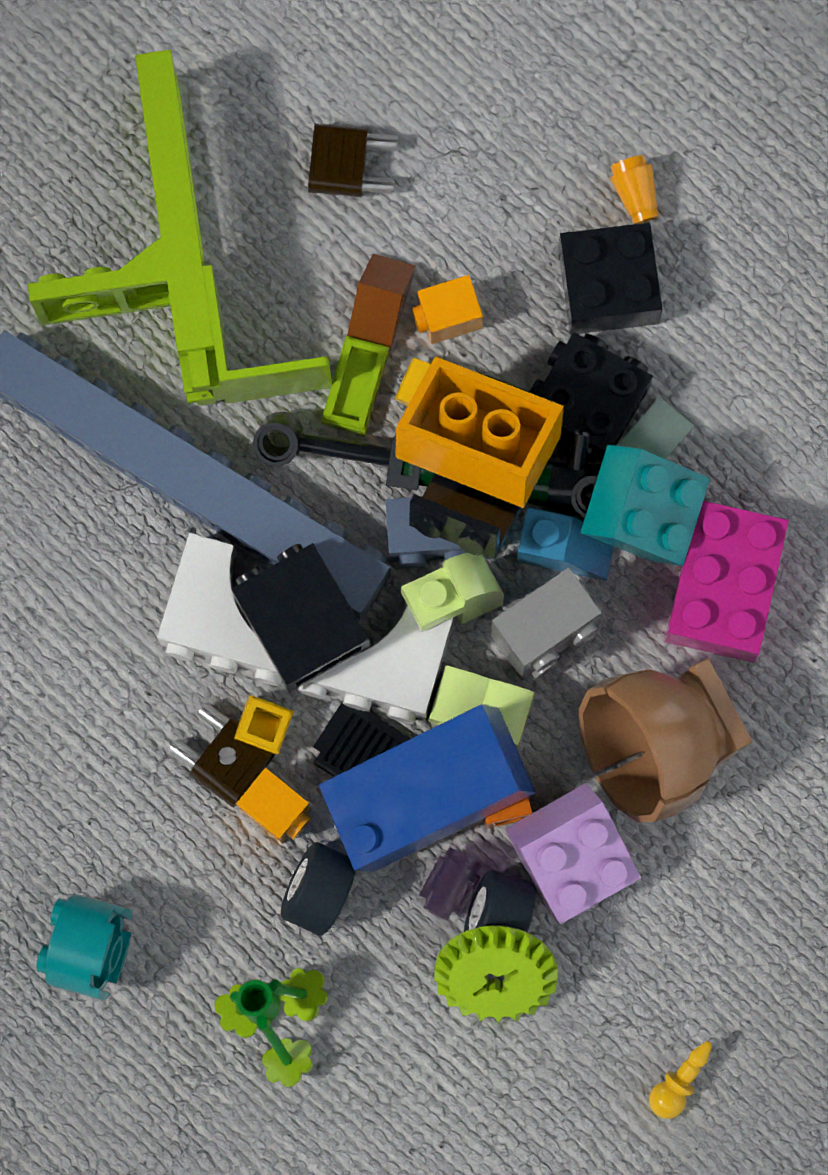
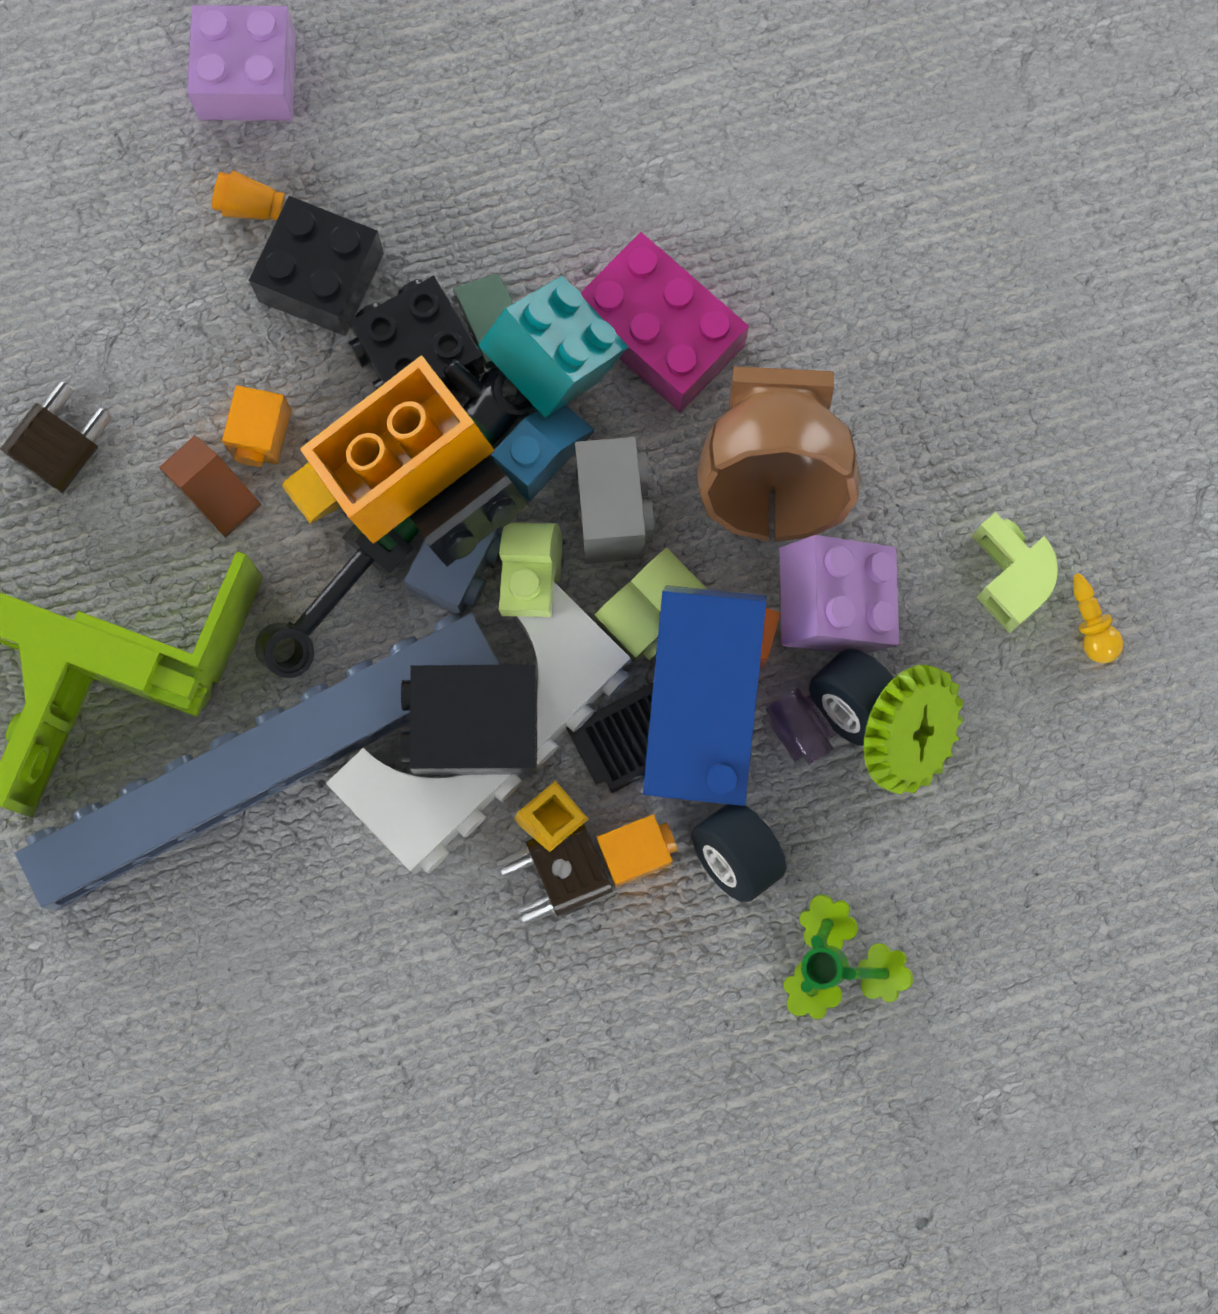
camera: 65 degrees left, 0 degrees up
(85, 946) = (672, 1108): teal brick -> none
(355, 386) = (275, 553): lime tile -> none
(679, 1003) = (1026, 575): none -> yellowish green brick
(748, 116) = (241, 62): none -> lavender brick

